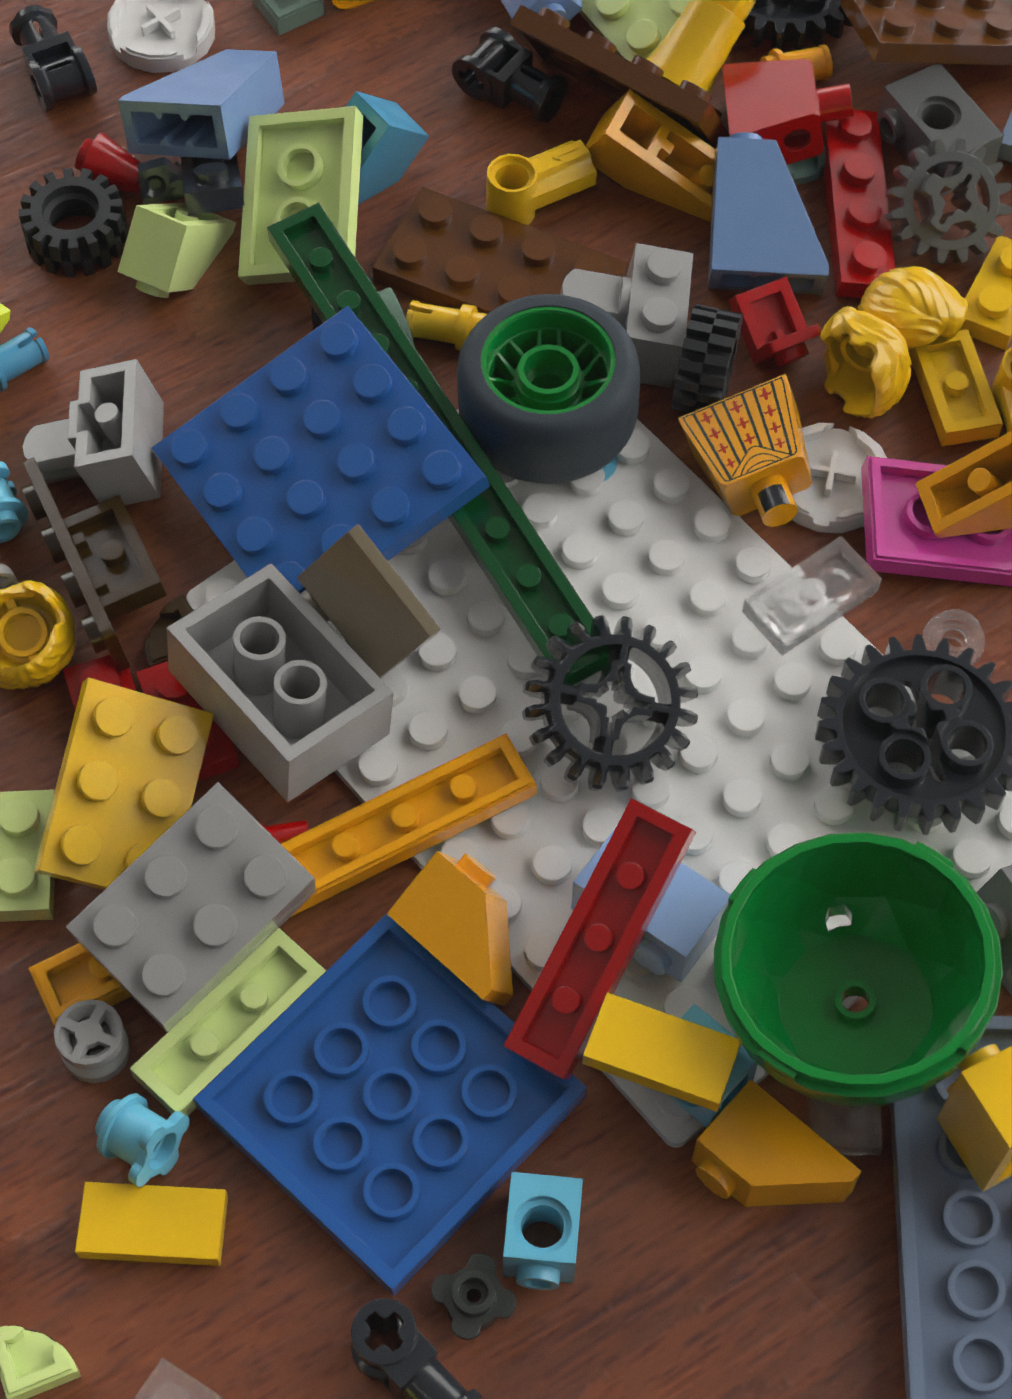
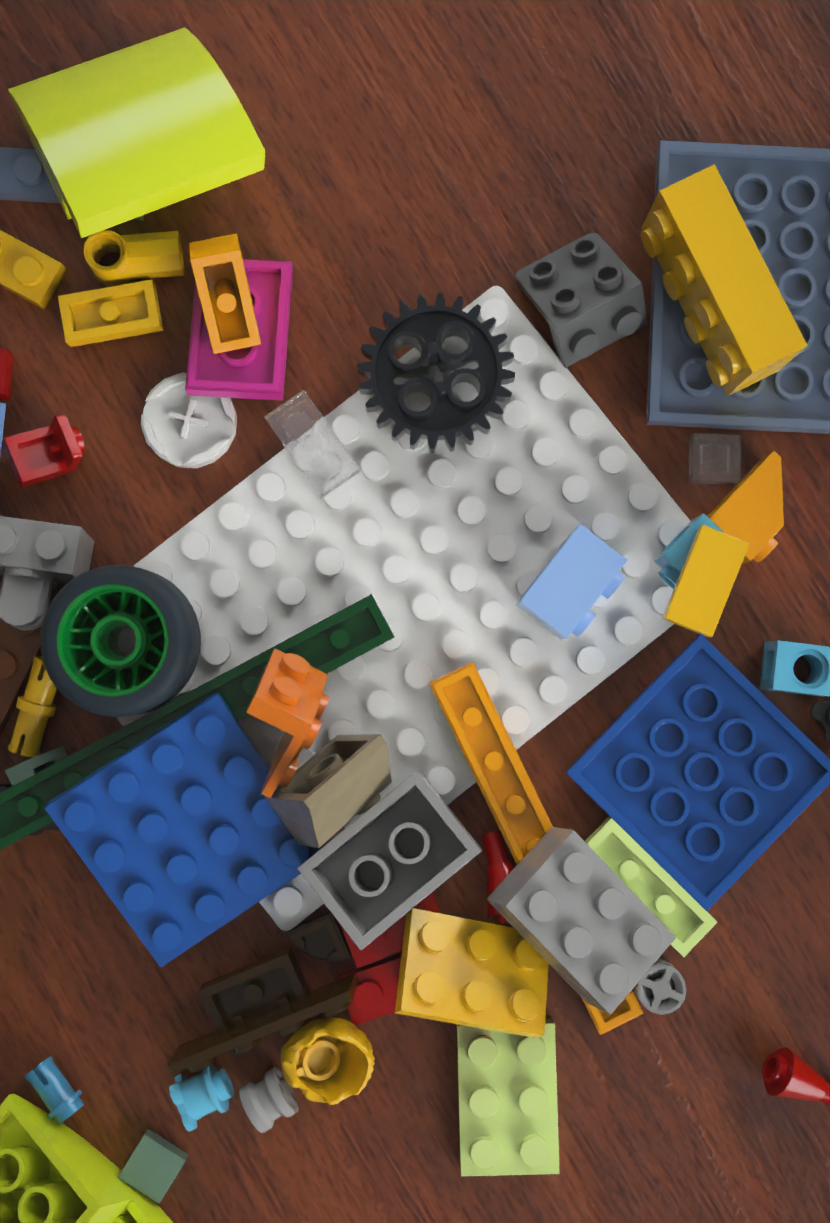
camera: 90 degrees left, 25 degrees up
(106, 436) = (143, 1005): light grey brick -> none
(140, 1137) = (732, 948): medium azure brick -> none
(152, 1224) = (785, 935): yellow tile -> none
(460, 923) = (583, 720): light orange slope -> none
(474, 553) = (293, 701): none -> orange bracket
(599, 938) = (615, 618): red plate -> none
(641, 707) = (426, 570): black gear -> none
(706, 358) = (89, 508): black tyre -> none
(753, 450) = (177, 478): light orange torso -> none
(865, 362) = (93, 381): yellow hair -> none
(913, 951) = (679, 393): green piece -> none
(916, 304) = (40, 339): yellow hair -> none
(955, 625) = (337, 328): clear plate -> none

